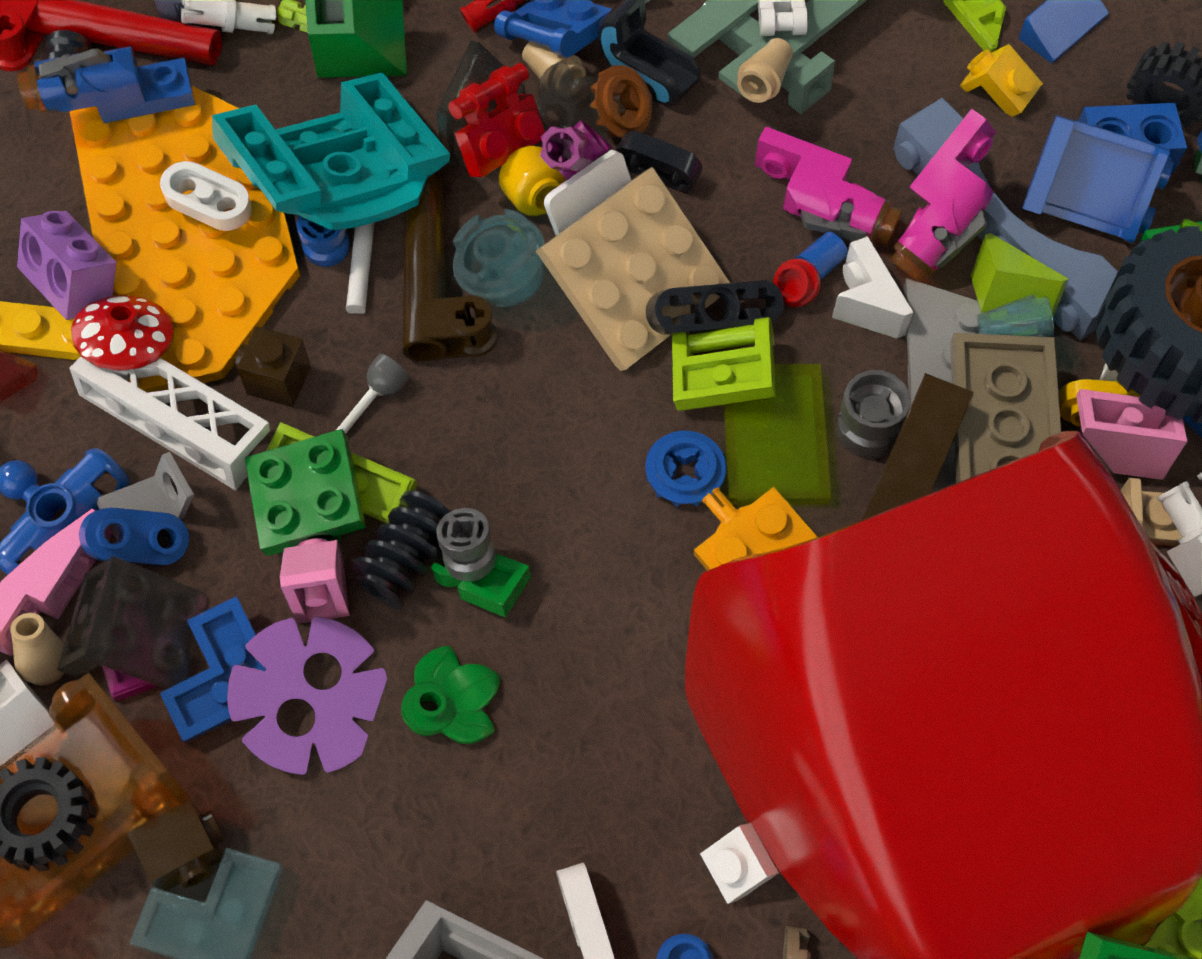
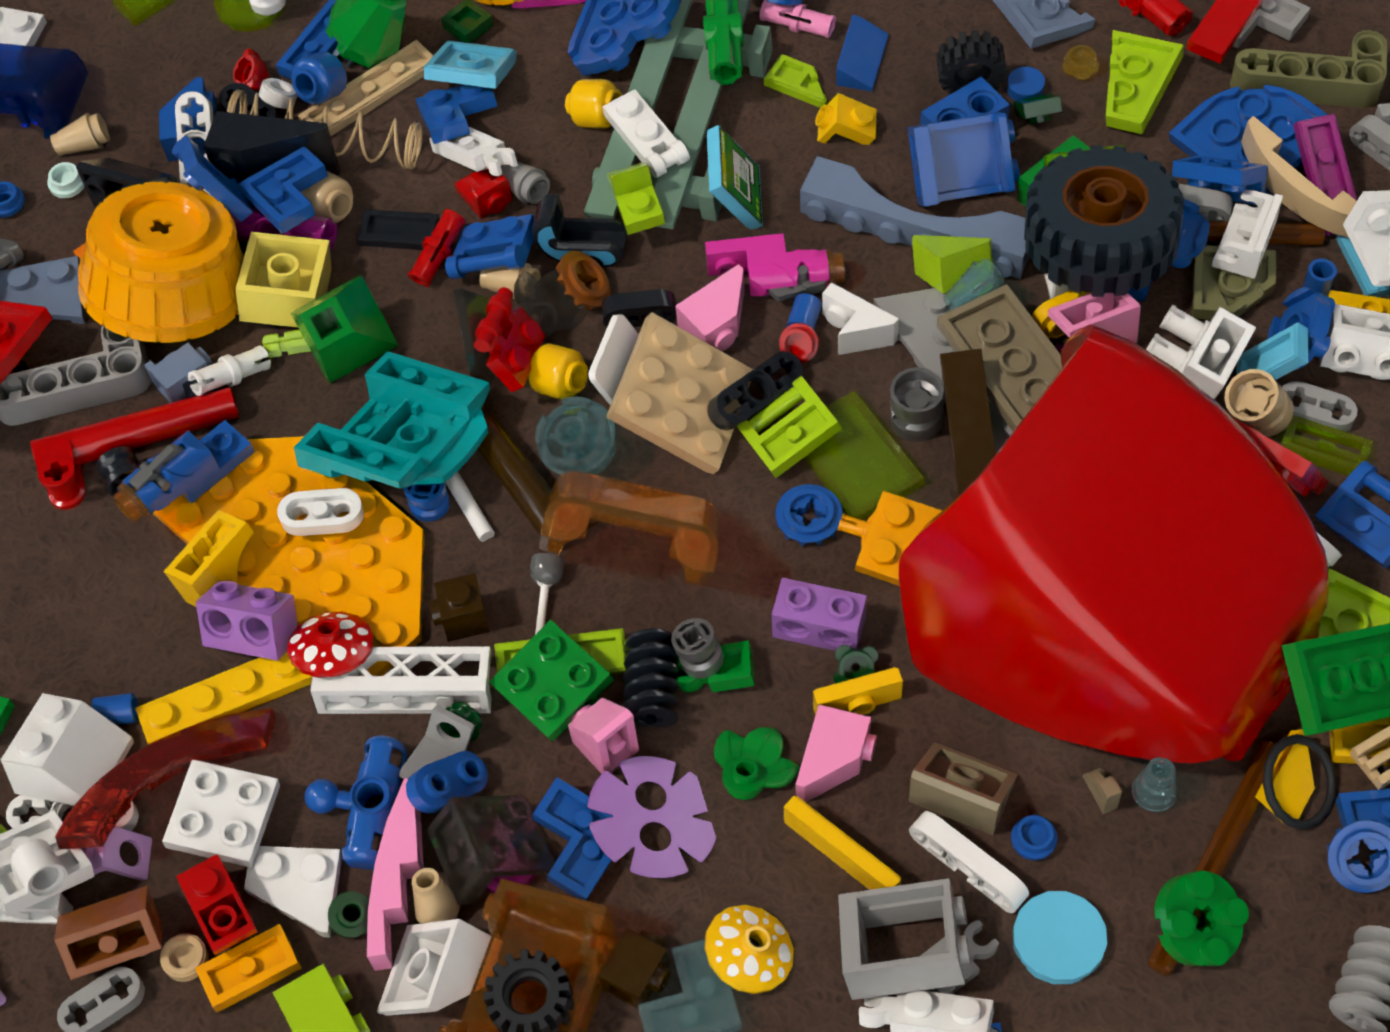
camera: 25 degrees left, 5 degrees down
(75, 182) = (210, 556): none -> yellow arch
(201, 480) = (466, 712): none -> dark green plate
(277, 901) = (740, 962): none -> yellow dish
(471, 849) = (838, 846): none -> yellow tile
(534, 738) = (834, 751): none -> bright pink slope
(541, 402) = (685, 518): none -> clear orange windscreen
(572, 148) = (586, 330): magenta piece -> none
(601, 691) = (861, 693): none -> yellow plate
(611, 669) = (847, 656): none -> dark green plate
(618, 582) = (818, 615): none -> medium lavender brick
(646, 857) = (961, 787): none -> dark tan slope
(724, 44) = (636, 198): none -> lime slope
(733, 204) = (715, 310): none -> bright pink slope
(739, 863) = (1027, 751): white plate -> none
(764, 71) = (681, 203): tan cone -> none
(840, 76) = (734, 178): none -> tile
(953, 198) = (878, 227): dark pink plate -> none

